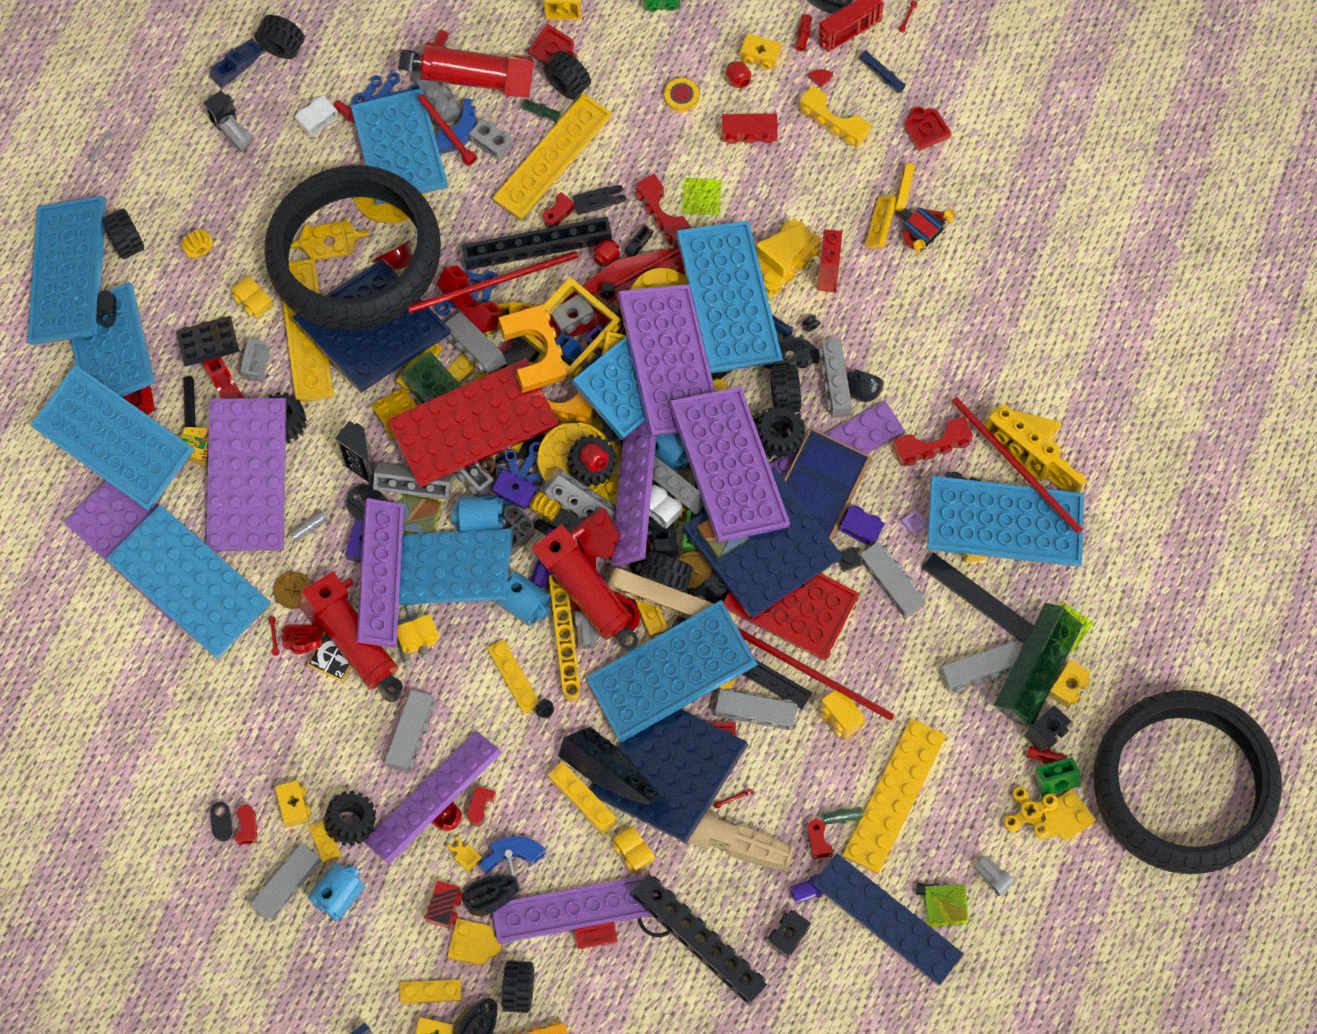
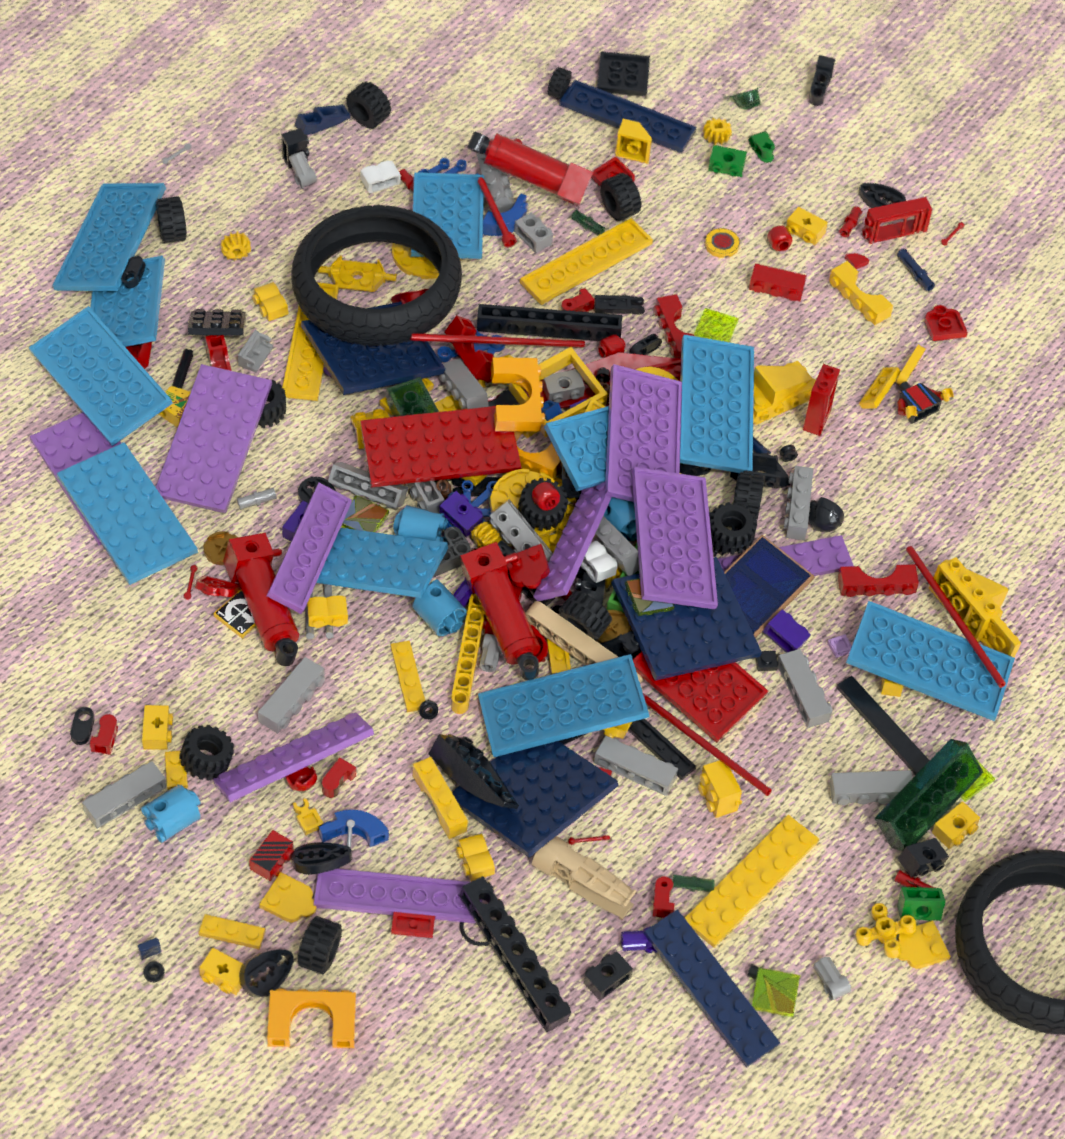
camera: 10 degrees right, 15 degrees down
(355, 451) = (321, 439): black slope -> none

